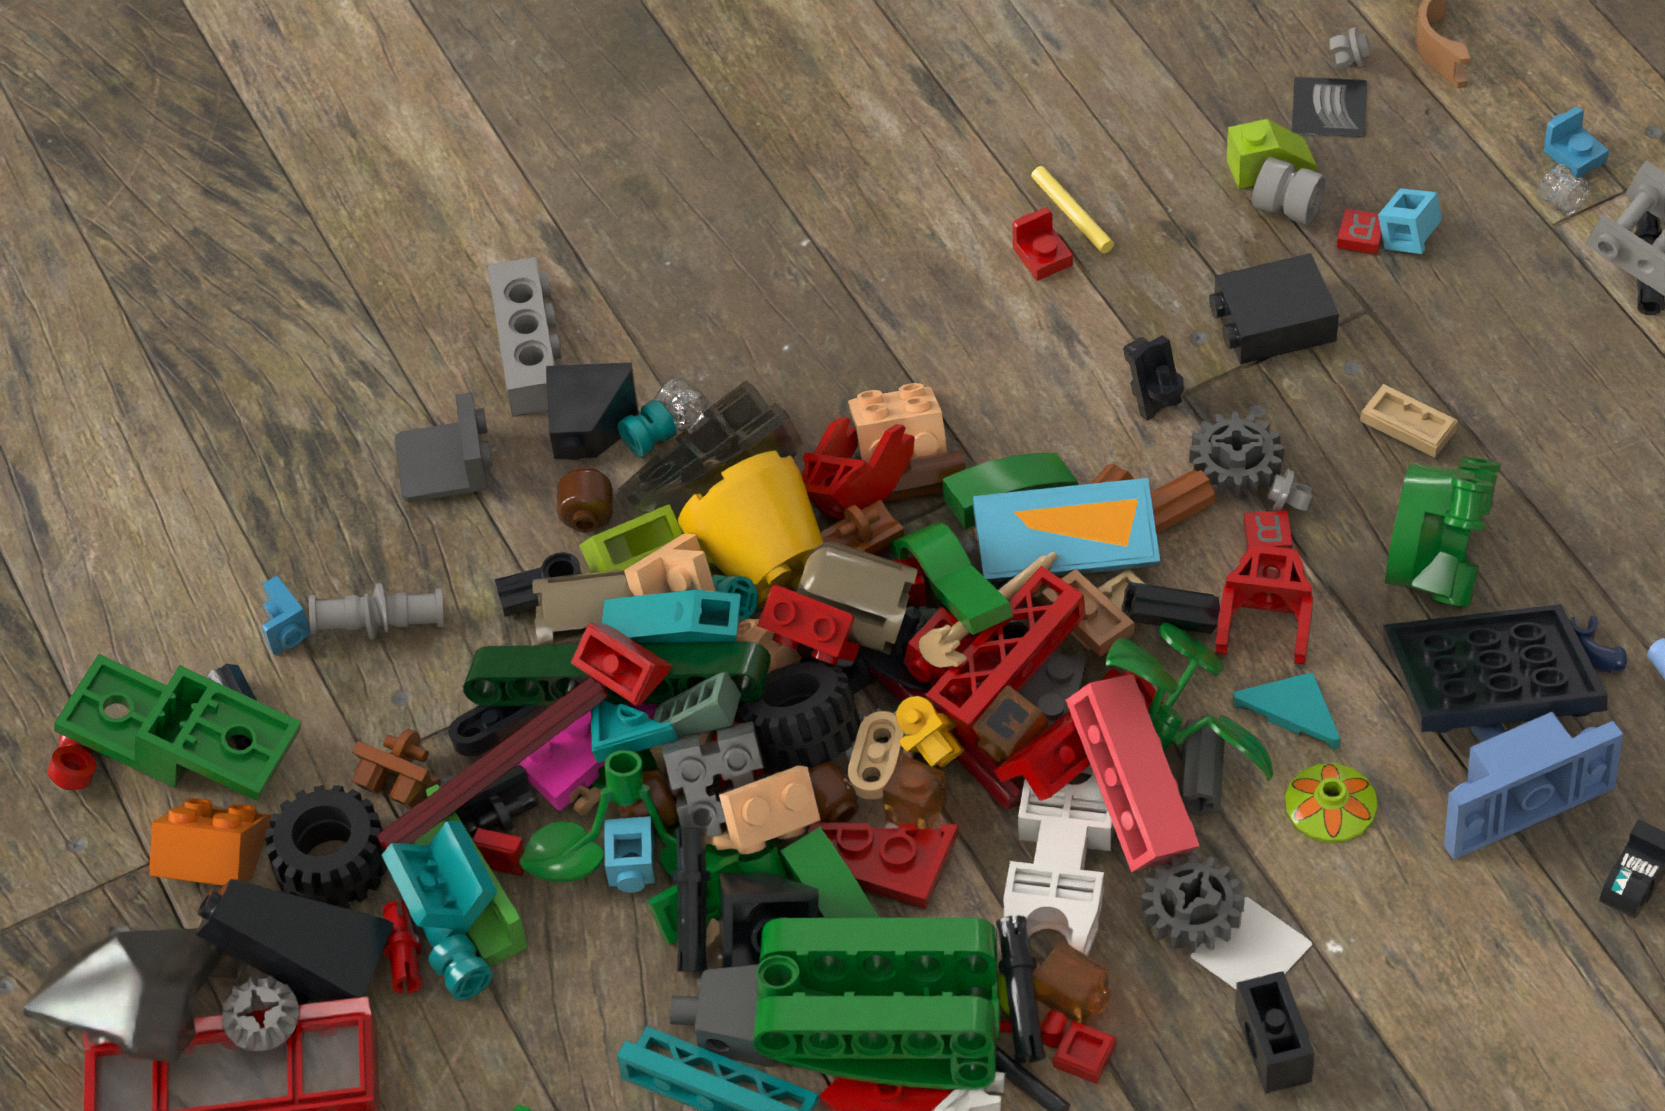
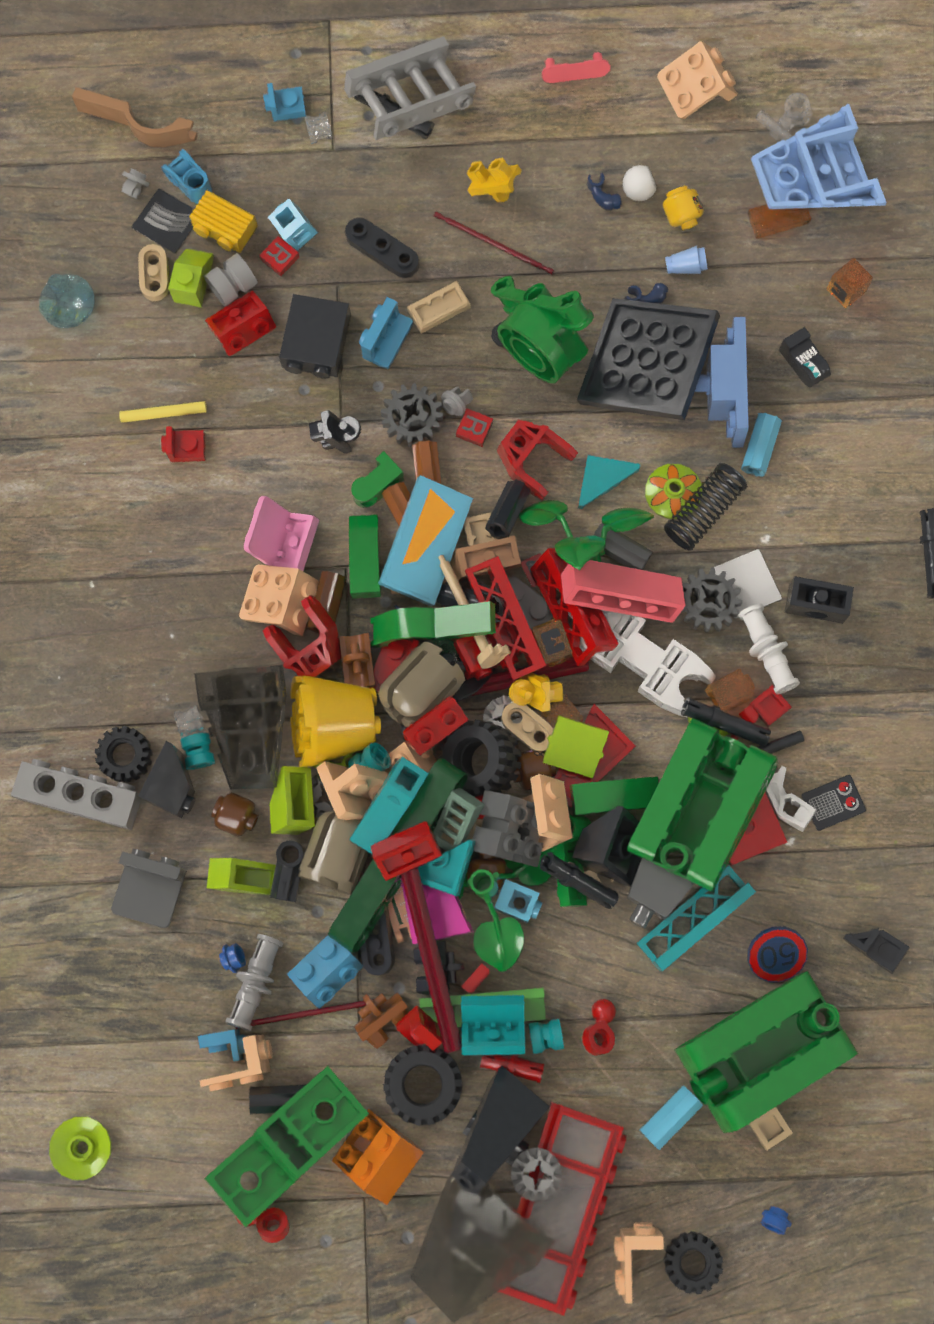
camera: 65 degrees left, 25 degrees up
(84, 528) = (65, 1152): none -> lime dish
(271, 647) = (257, 1053): none -> light nougat bracket
(364, 693) = (307, 1013): none -> dark red piece
(396, 798) = (420, 1028): none -> red bracket
(399, 578) = (232, 957): none -> blue plate
(424, 685) = (324, 971): none -> dark azure bracket
(506, 537) = (240, 876): none -> lime slope
(528, 1028) = (603, 1012): none -> red plate
(603, 341) = (114, 739): none -> black tyre
(878, 815) = (575, 746): none -> lime piece
(976, 377) = (280, 536): none -> bright pink bracket
(1101, 447) = (369, 489): none -> green leg
(1152, 55) = (66, 300): none -> clear light blue dish
(1162, 1003) = (768, 649): none -> white piece
(1239, 230) = (241, 323): none -> red bracket
(1251, 108) = (153, 274): none -> tan plate
(1262, 836) = (669, 527): none -> black piece
(1327, 374) = (385, 335): none -> dark azure bracket
(1363, 152) = (223, 222): none -> yellow brick
(1398, 97) = (185, 175): none -> dark azure piece
(1450, 330) = (389, 256): none -> black plate
(1467, 872) = (761, 444): none -> medium azure axle
(1547, 447) = (492, 242): none -> dark red piece
(1628, 391) = (493, 181): none -> yellow hips

